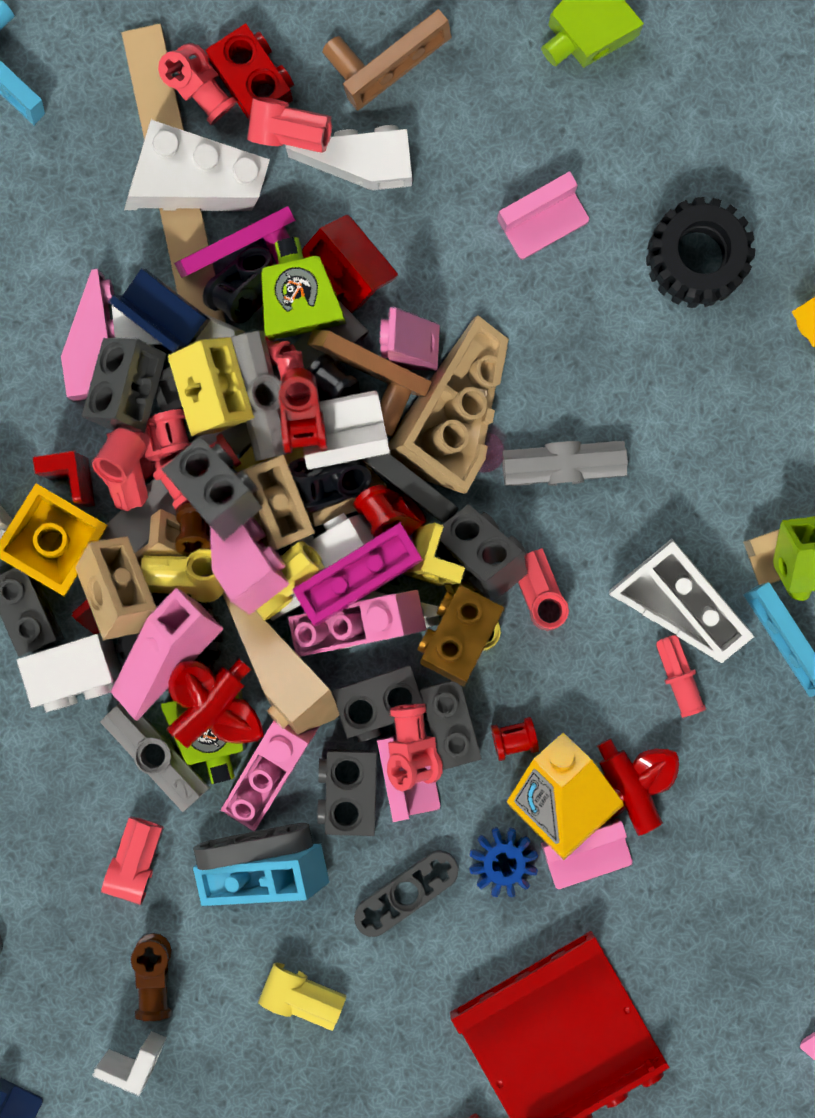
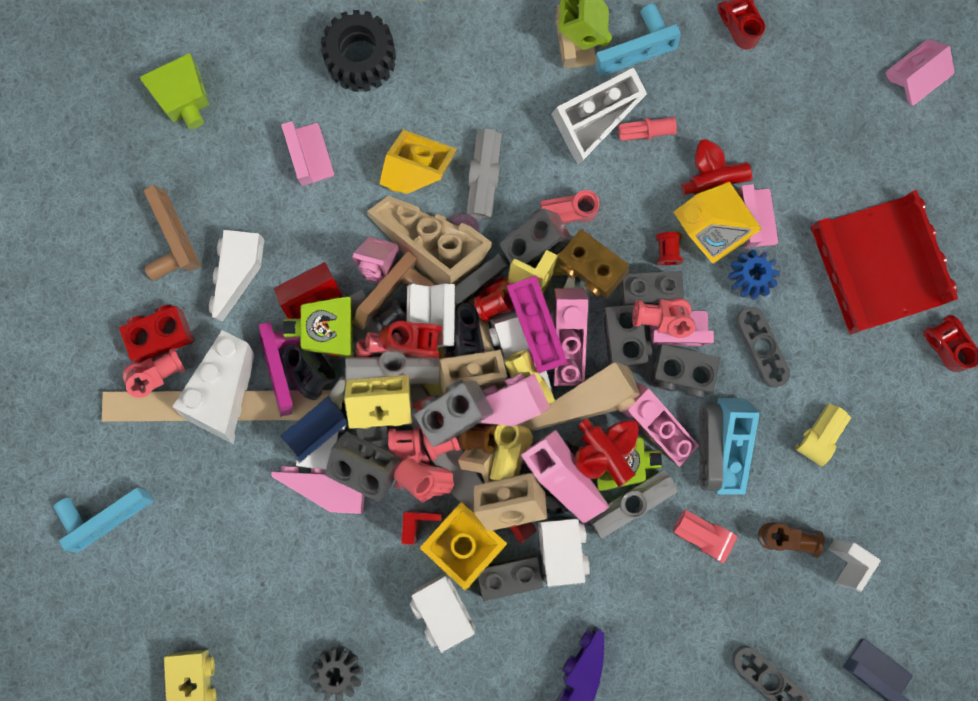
camera: 85 degrees left, 5 degrees down
(278, 124) = (198, 317): coral piece -> none
(560, 366) = (415, 162): none -> yellow slope

